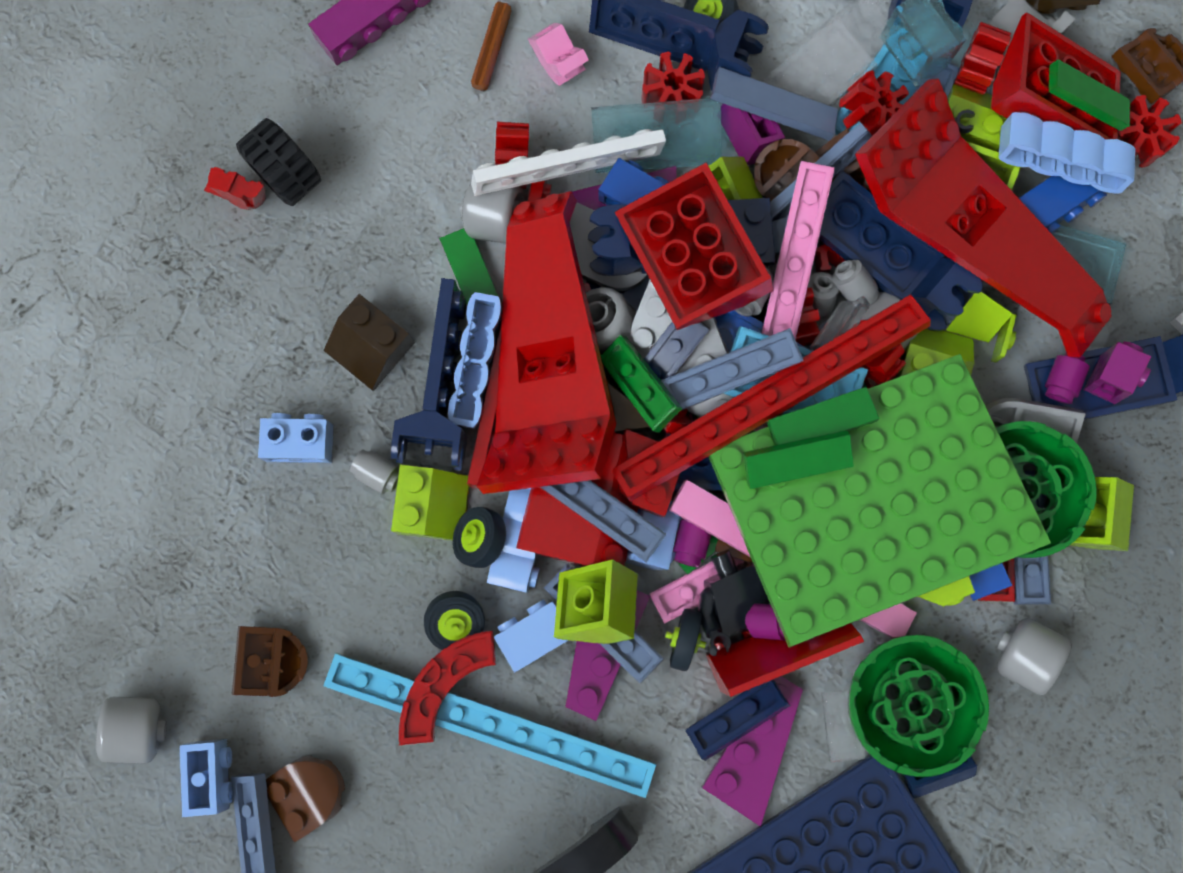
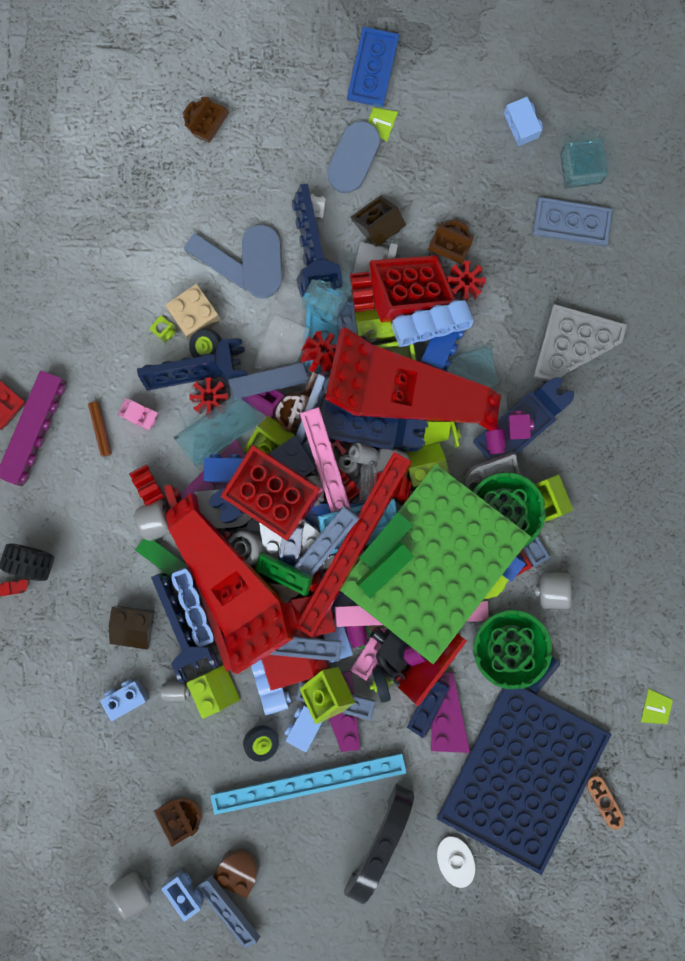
camera: 35 degrees left, 5 degrees up
(436, 681) = (269, 778): red tile -> none
(479, 537) = (248, 694): black wheel -> none
(558, 163) = (173, 481): white plate -> none
(1089, 95) = (427, 286): green tile -> none

